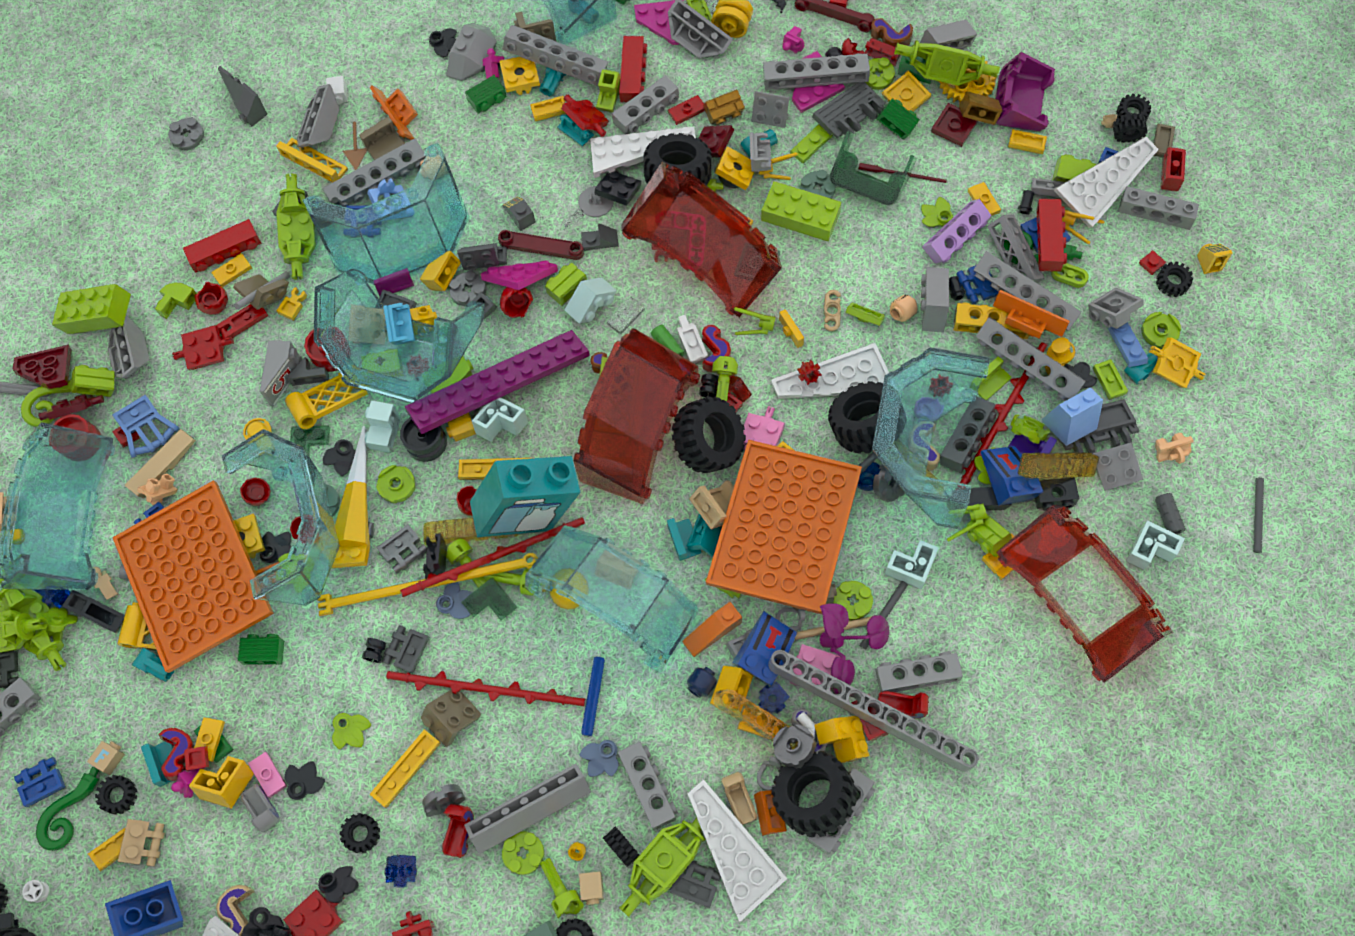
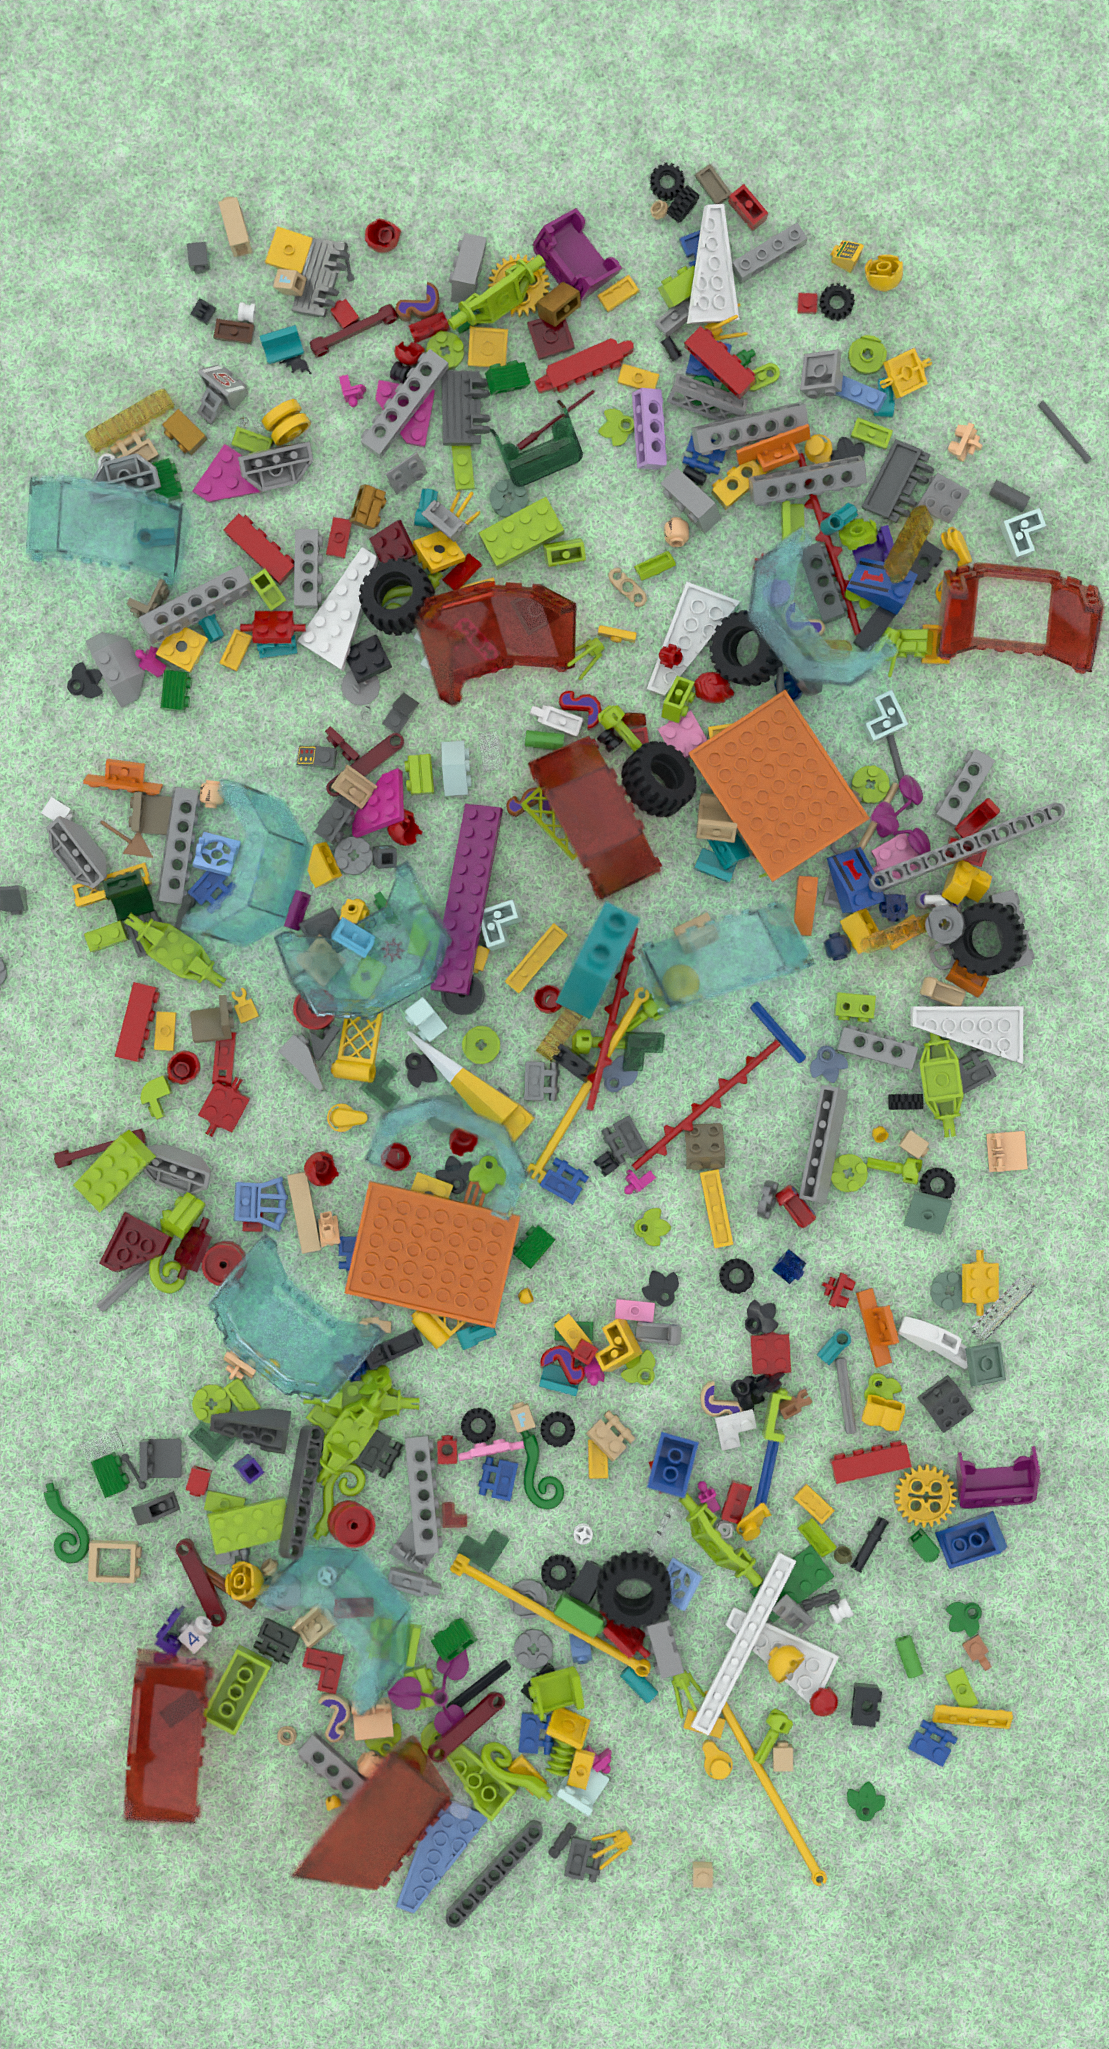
camera: 55 degrees left, 20 degrees up
(27, 720) = (451, 1458): none -> red brick
(60, 752) = (483, 1450): none -> bright pink plate
(63, 728) = (466, 1425): none -> black tyre
(81, 277) = (65, 1158): none -> dark red piece
(203, 446) = (320, 1169): none -> red hair
(214, 675) = (524, 1296): none -> yellow hinge
(221, 817) = (638, 1366): none -> lime plate
(249, 298) = (216, 1021): light grey bar -> none
(268, 180) = (106, 936): none -> lime brick
(312, 167) = (129, 895): none -> dark green panel
(328, 632) = (561, 1186): none -> blue plate
(376, 689) = (637, 1184): none -> dark pink piece
(516, 246) = (354, 786): none -> tan plate
(541, 213) = (337, 740): none -> dark red plate
(666, 737) = (854, 1006): none -> lime brick
(739, 198) = (462, 572): none -> red plate
(782, 403) = (677, 699): none -> lime brick
(814, 246) = (564, 552): none -> lime brick
(815, 424) = (713, 688): none -> red hair
(957, 158) = (583, 365): none -> red hinge
(1025, 407) = (838, 519): none -> teal piece
(1075, 416) = (881, 495): light blue slope -> none
(1096, 504) = (955, 541): none -> yellow piece
(1228, 291) = (884, 272): none -> yellow cylinder

